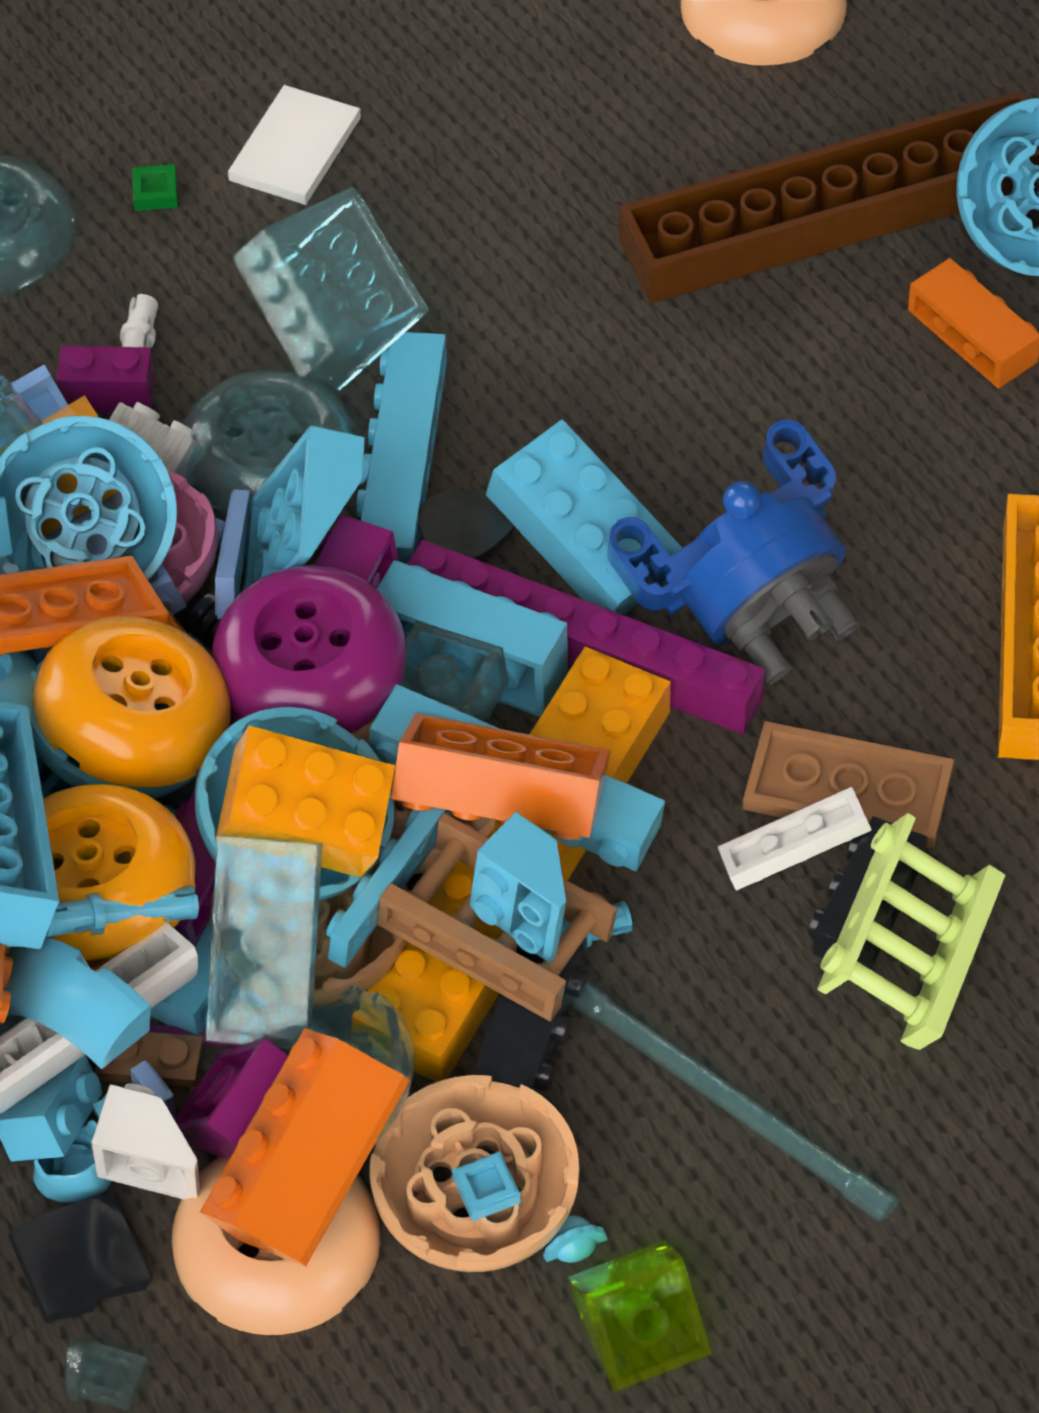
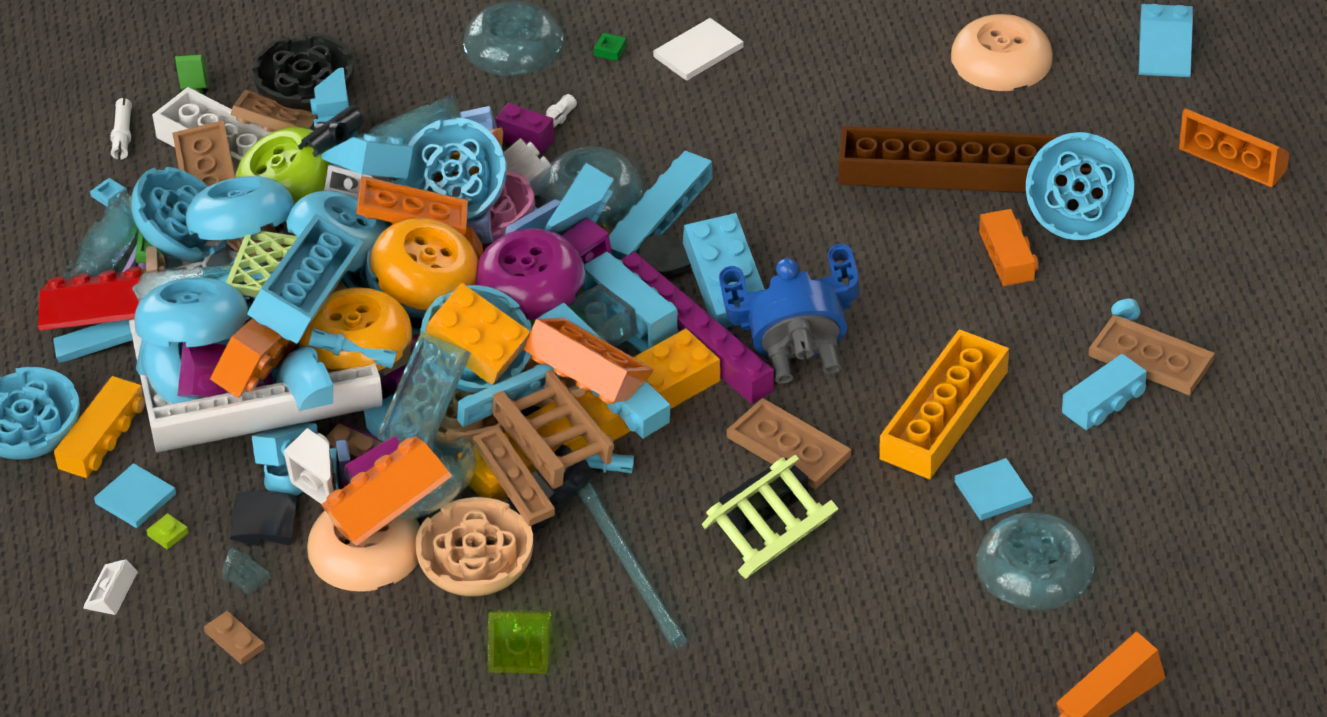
camera: 25 degrees right, 10 degrees down
(330, 288) = (663, 119): clear light blue slope -> none
(478, 1025) = (513, 476): none -> medium nougat plate
(486, 1186) = (473, 549): medium azure tile -> none
(521, 886) = (562, 409): medium azure slope -> none
(574, 1240) = (510, 598): medium azure piece -> none
(794, 838) = (739, 456): white plate -> none

